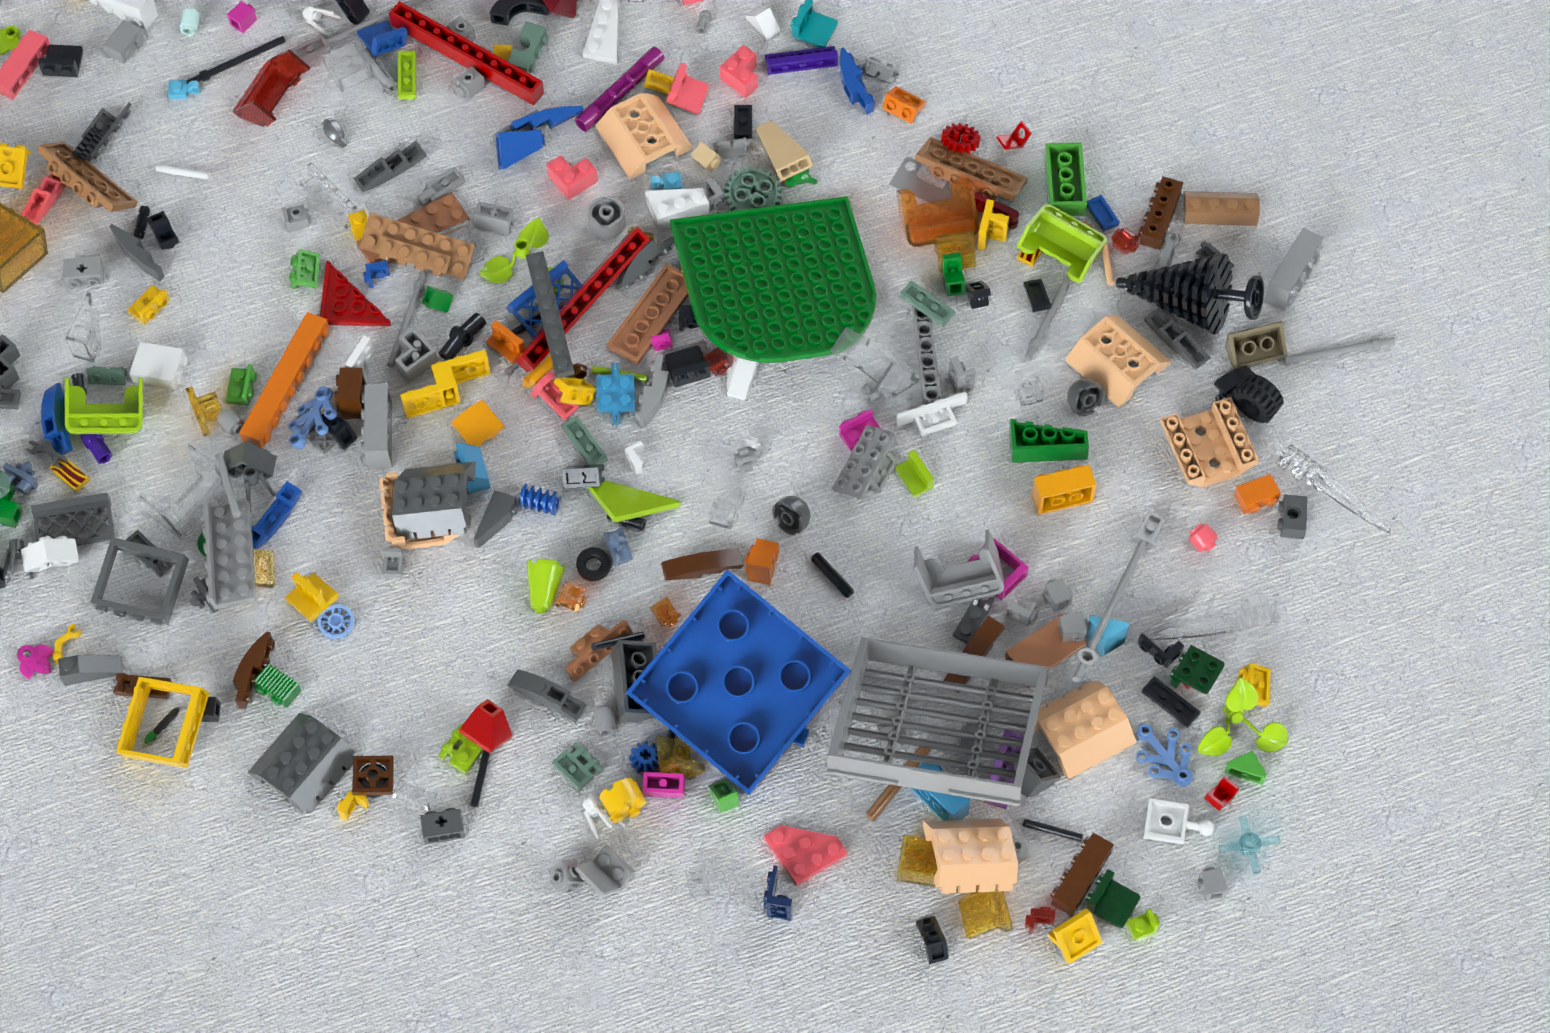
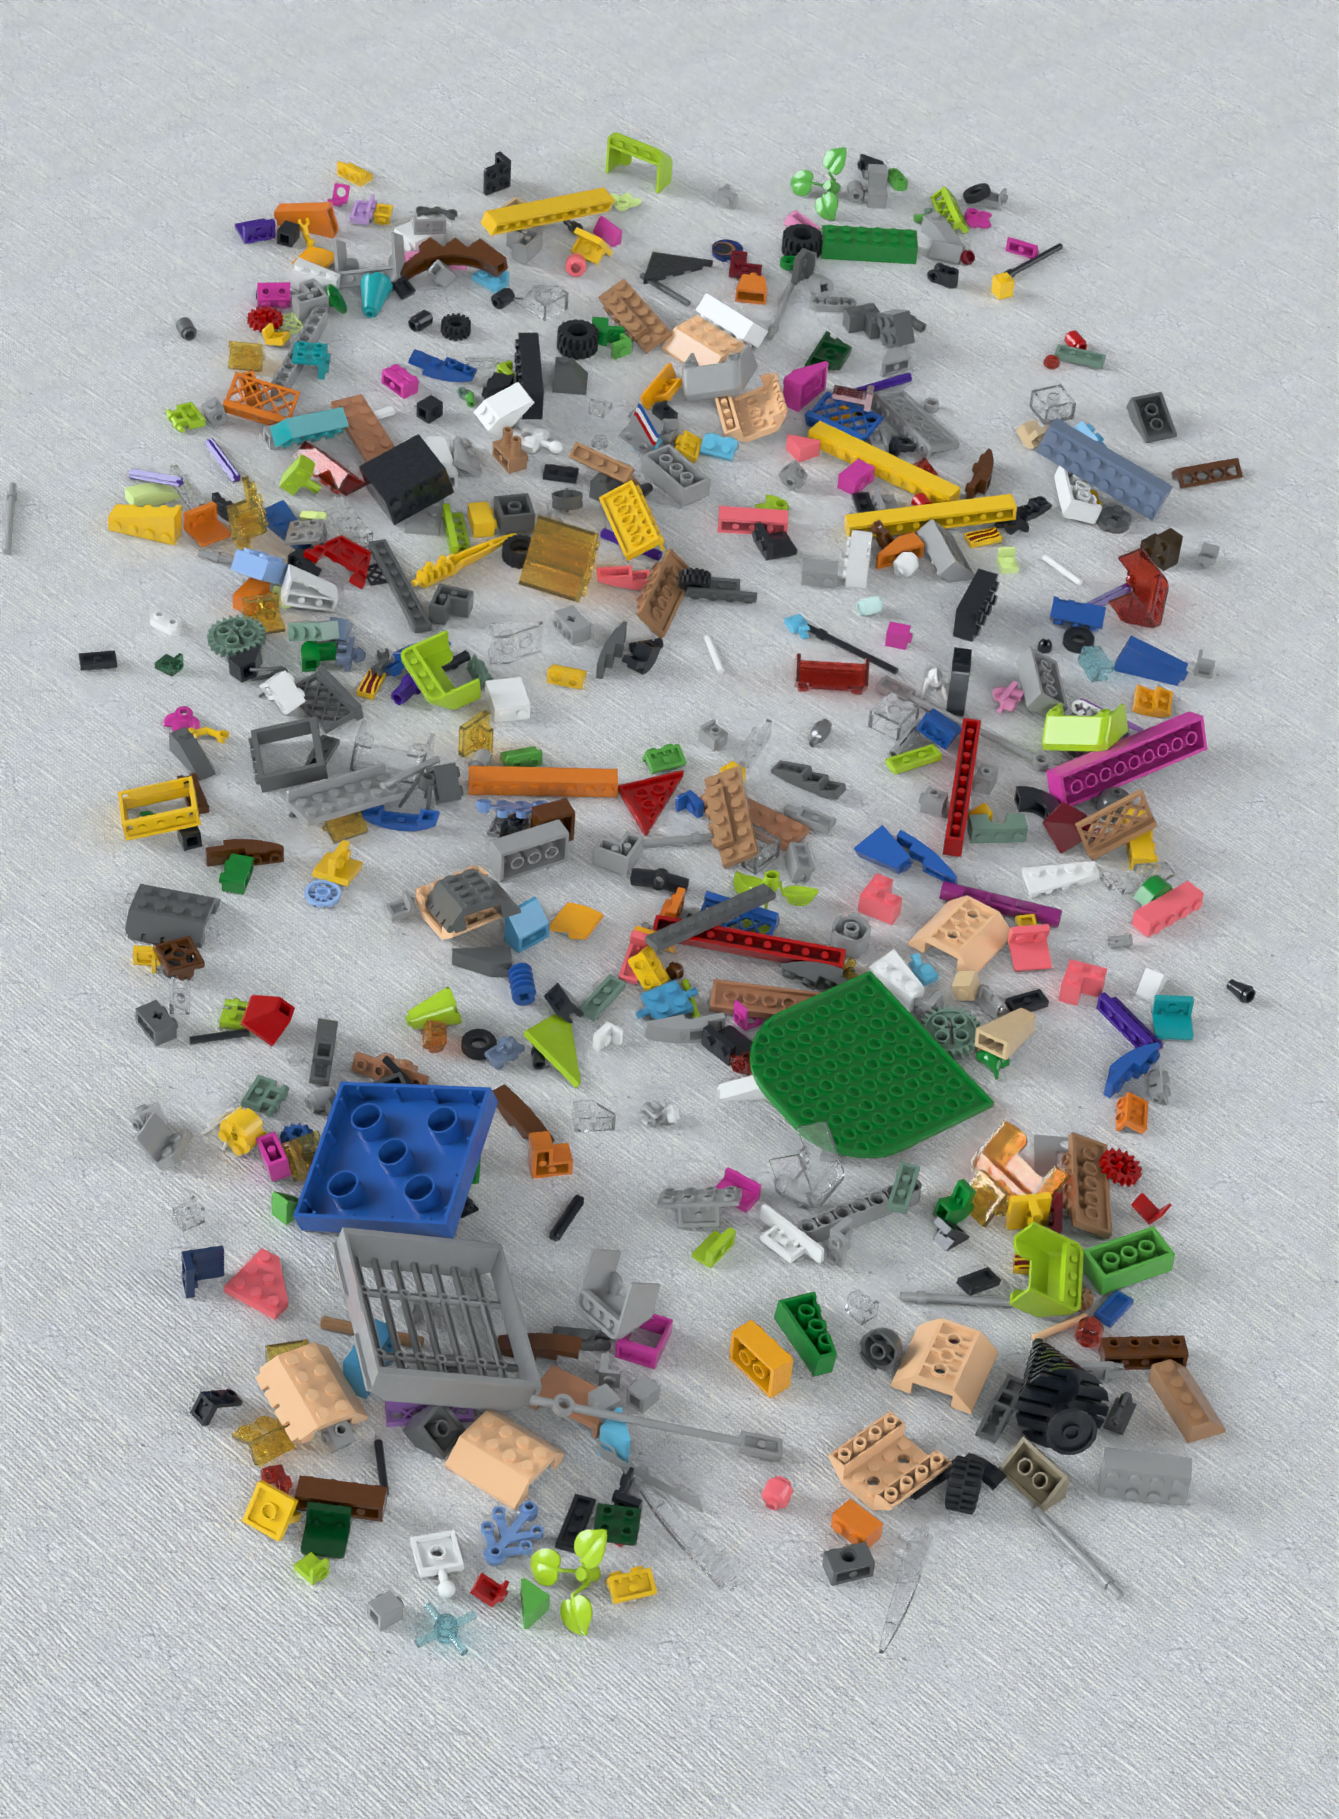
camera: 60 degrees right, 20 degrees down
(361, 354) = (591, 815): white plate -> none
(437, 299) = (689, 852): green panel -> none
(446, 377) = (600, 880): yellow bracket -> none
(792, 514) = (613, 1164): dark grey cylinder -> none

